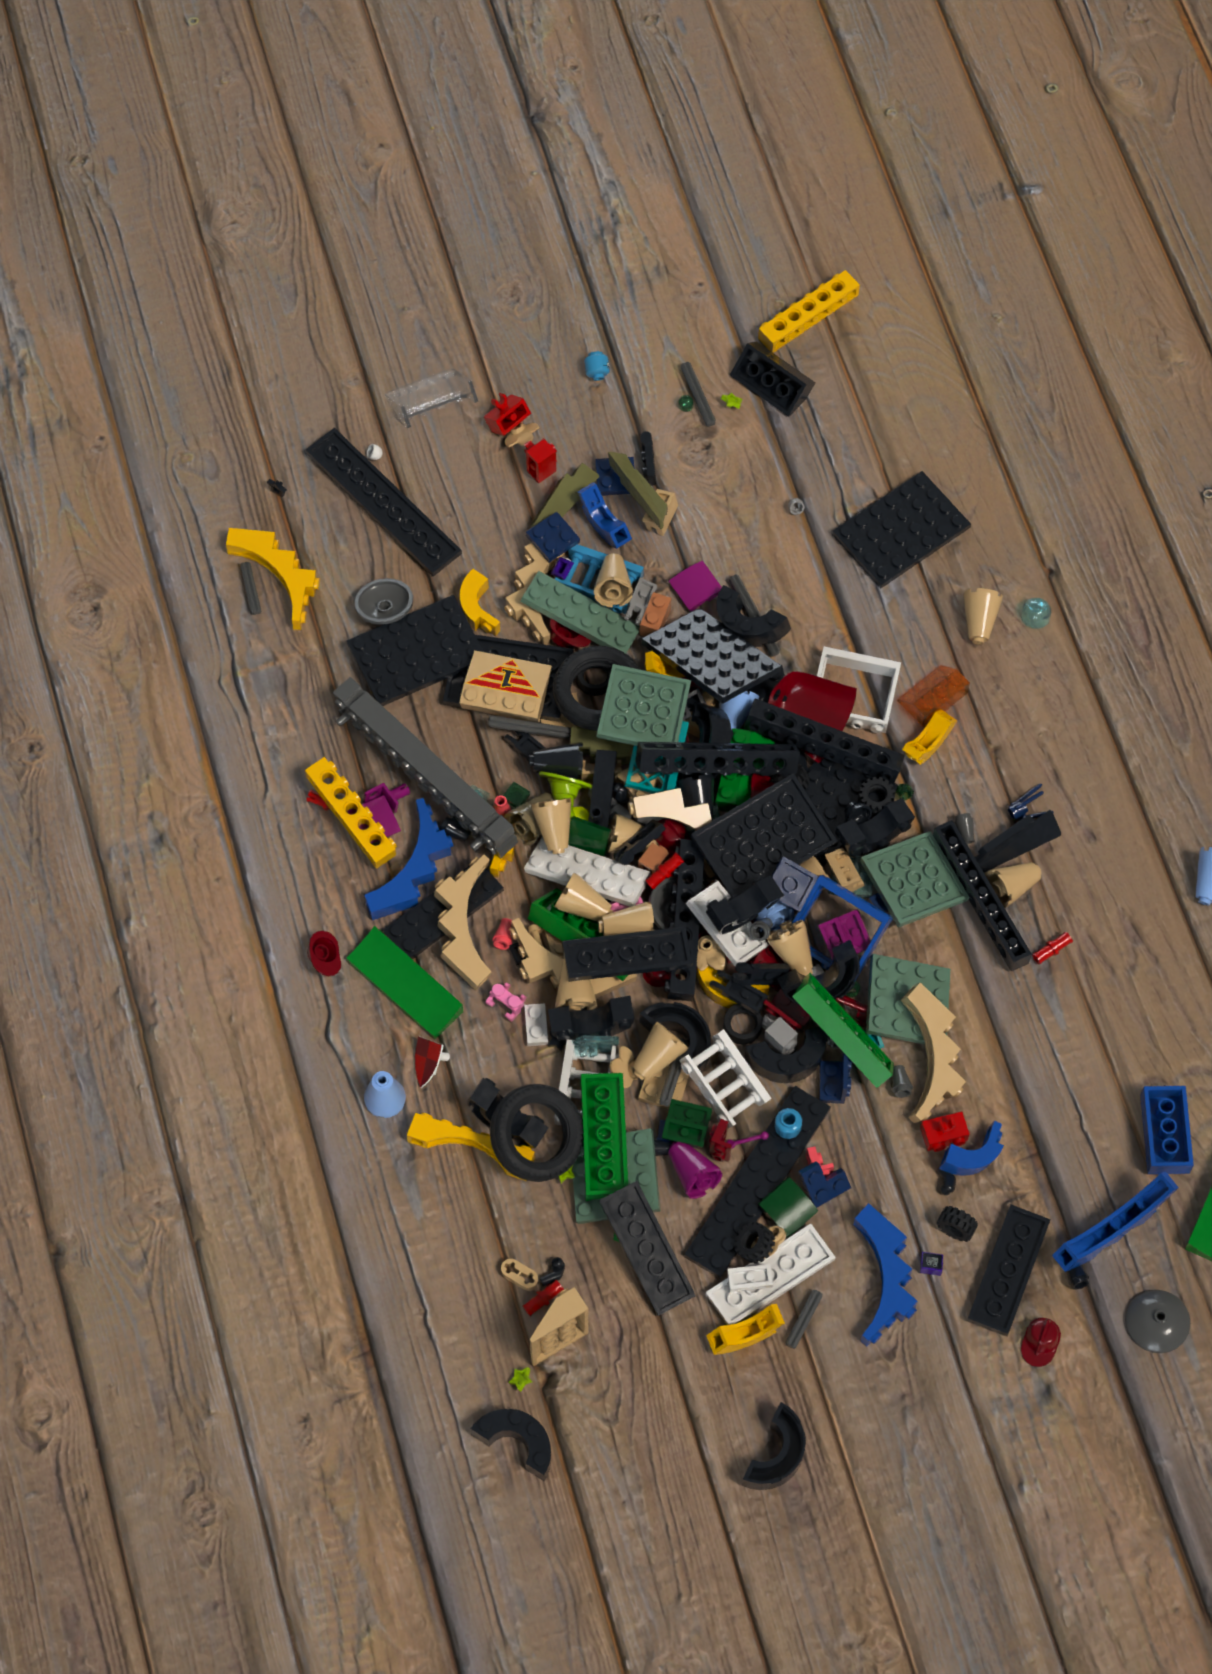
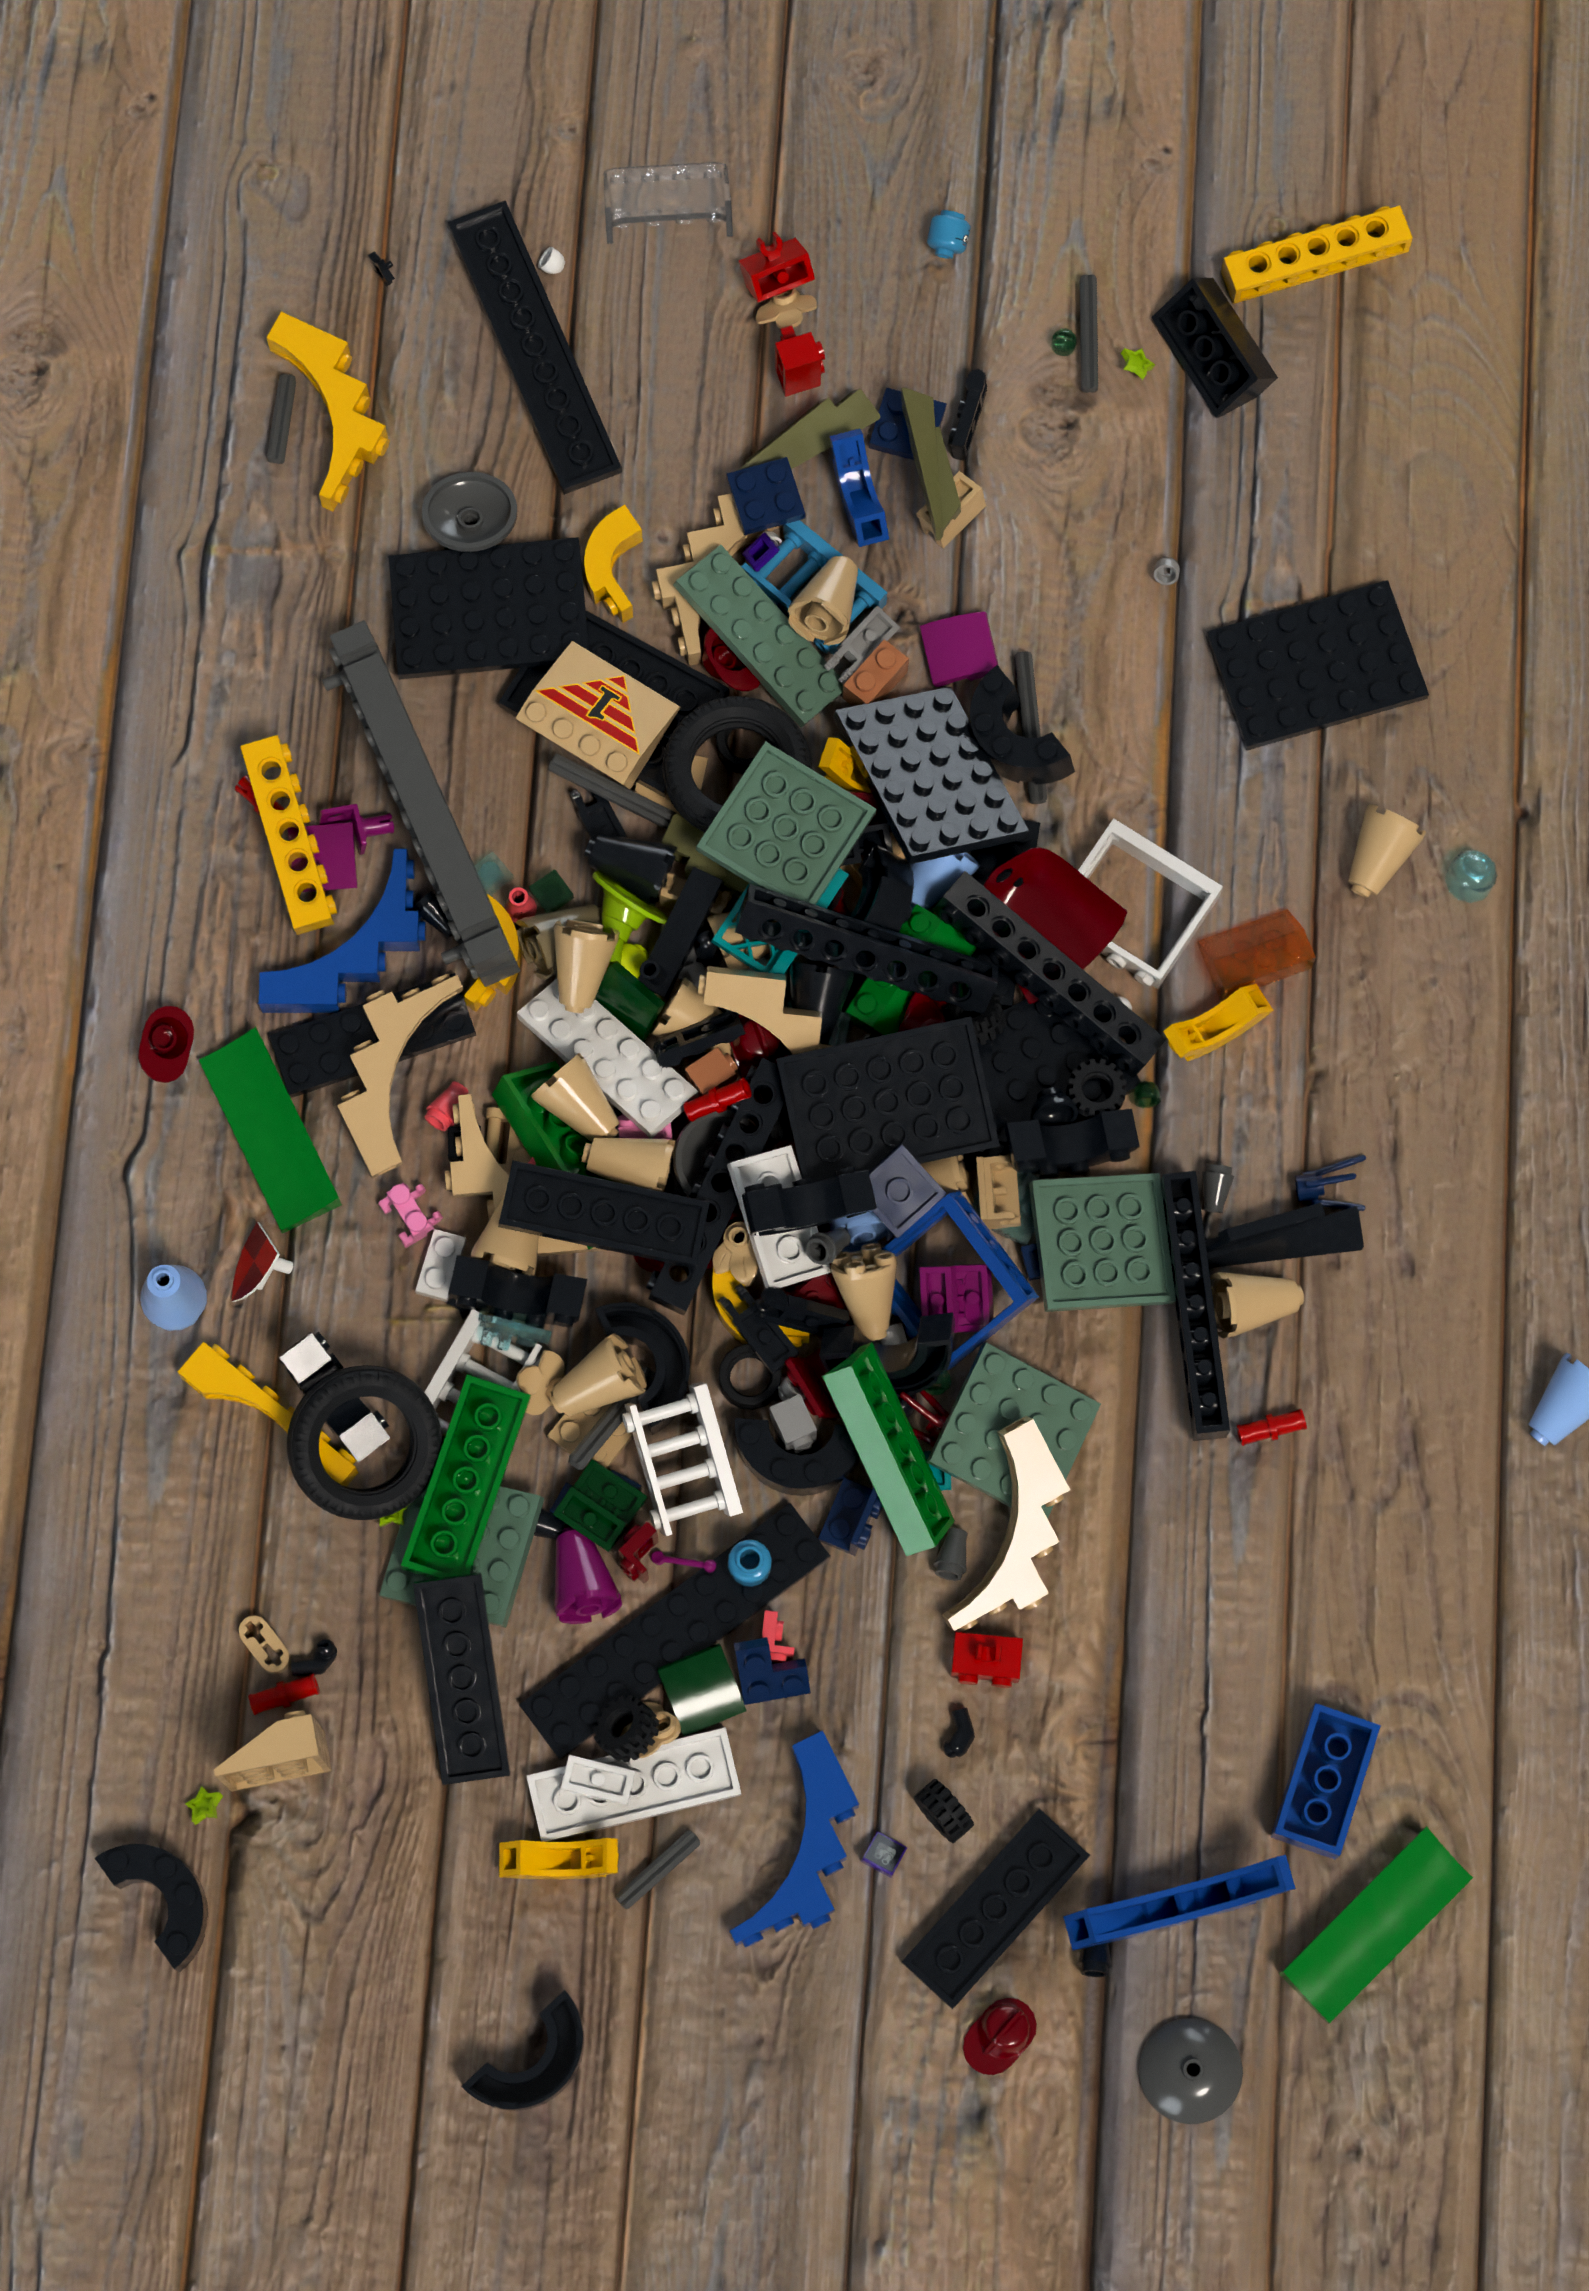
camera: 20 degrees right, 10 degrees up
(969, 1162) = (999, 1721): blue arch -> none

